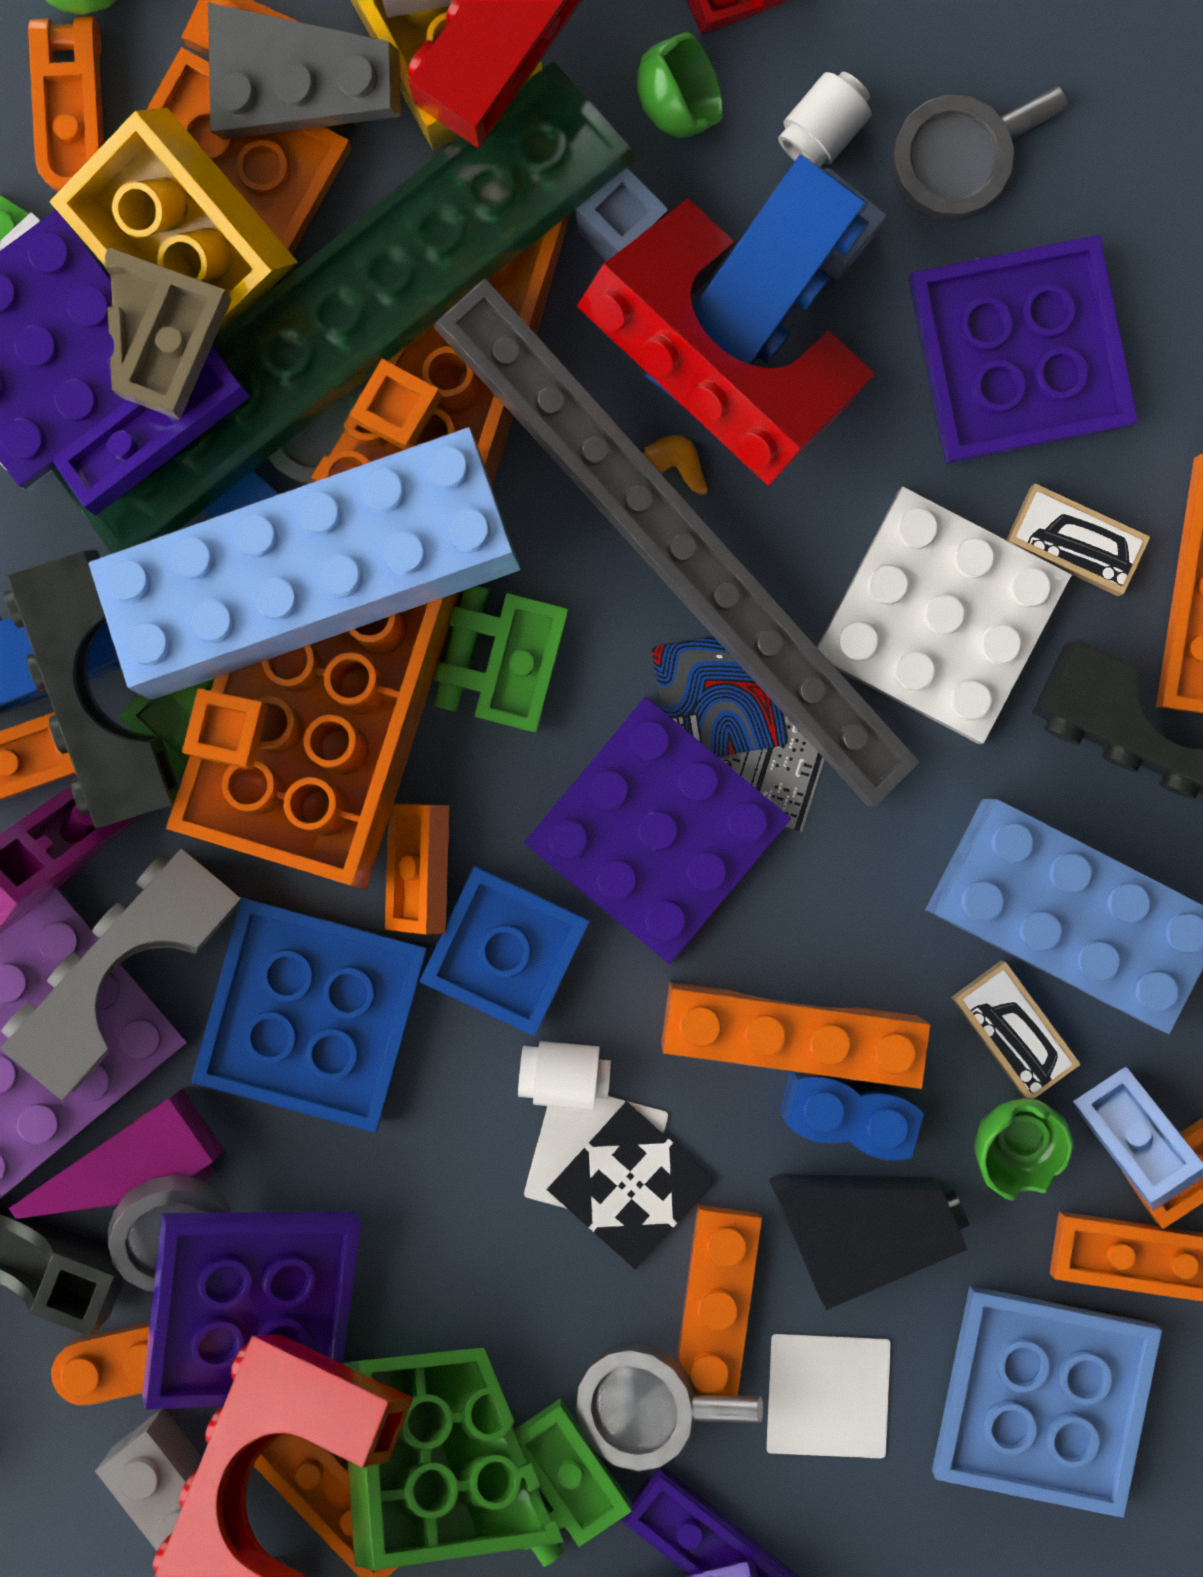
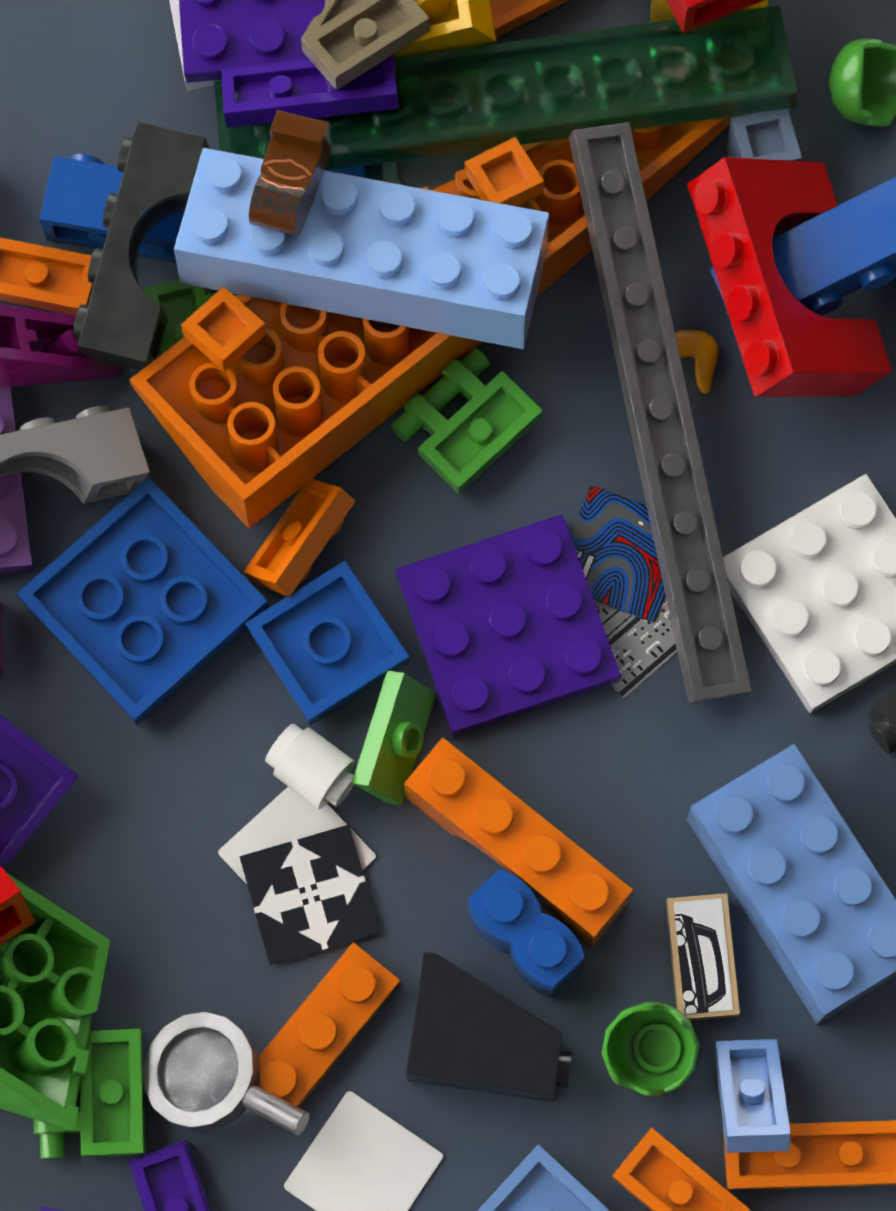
camera: 35 degrees right, 15 degrees down
(194, 549) = (290, 173): none -> reddish brown leg
(621, 1004) = (394, 737): none -> bright green plate

